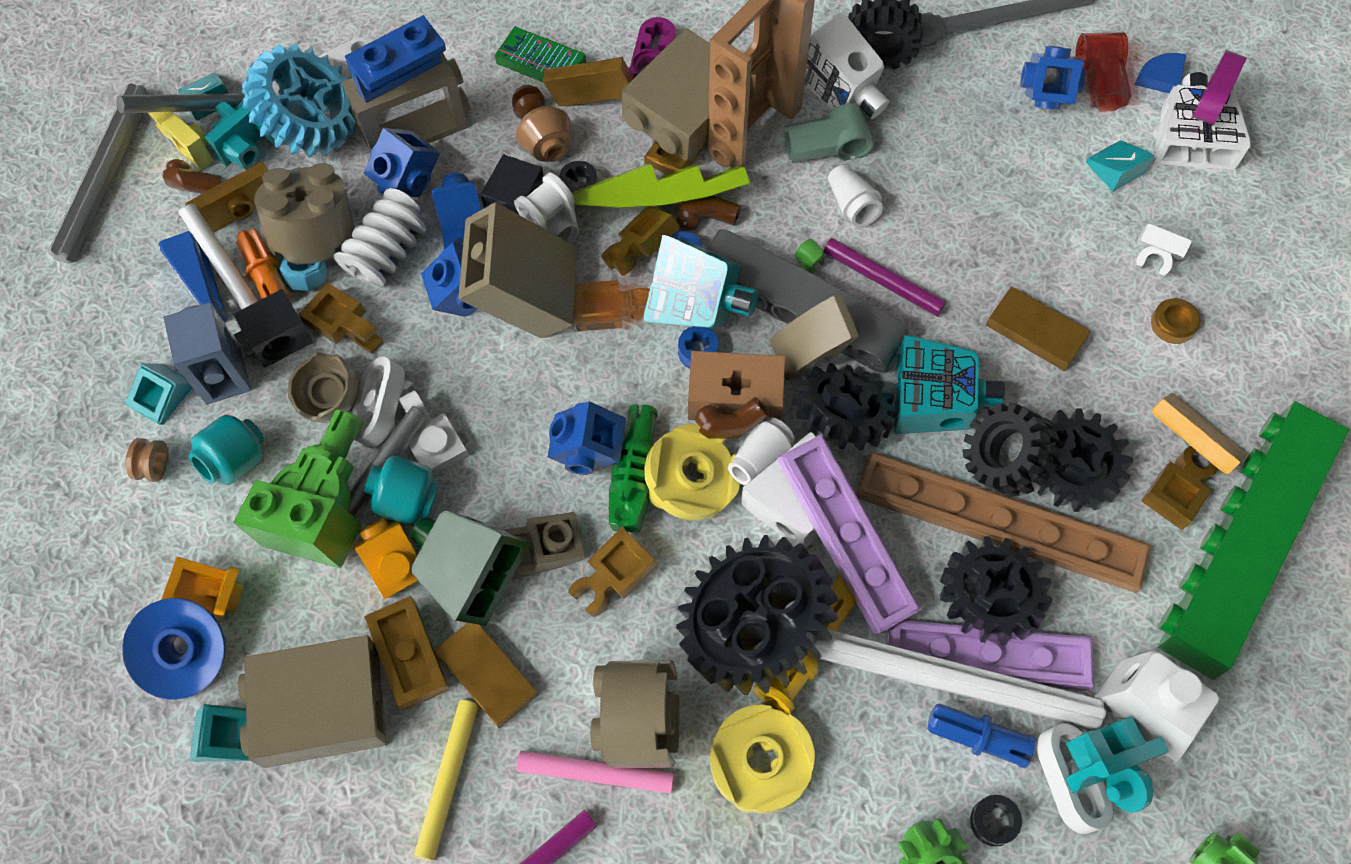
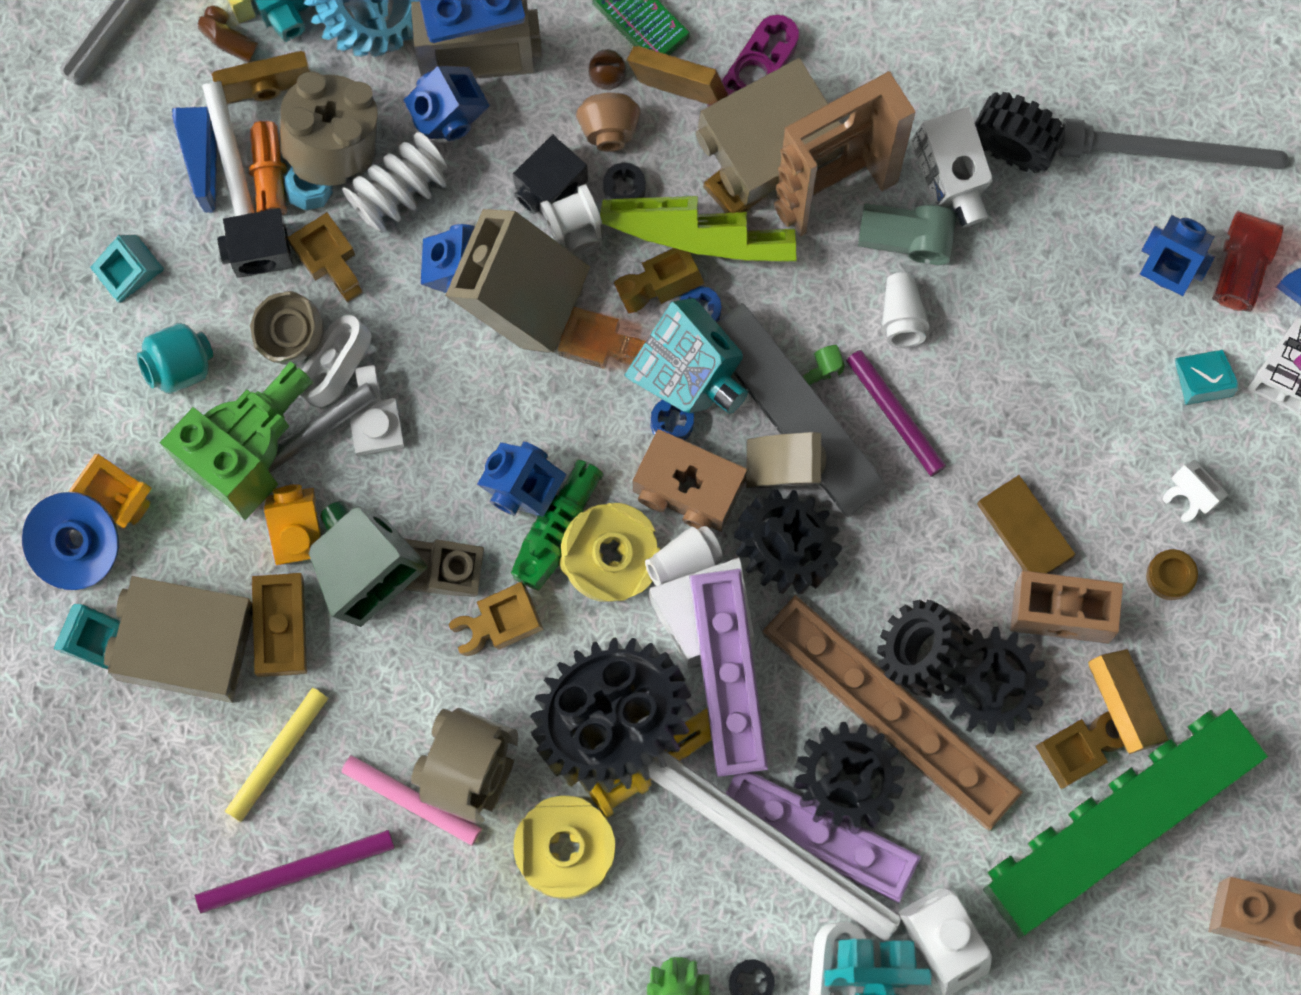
camera: 20 degrees right, 10 degrees up
(147, 459) = (96, 339): medium nougat bush -> none
(206, 353) = (185, 253): sand blue brick -> none
(401, 490) = (327, 465): teal head -> none
(453, 204) = (486, 177): blue bracket -> none
(486, 673) = (345, 671): pearl gold tile -> none
(707, 207) = (755, 271): reddish brown arm -> none
(731, 425) = (666, 522): reddish brown arm -> none
(940, 387) = (892, 557): teal torso -> none
(981, 735) = (773, 903): blue axle -> none
(1111, 371) = (1066, 607): none -> medium nougat brick

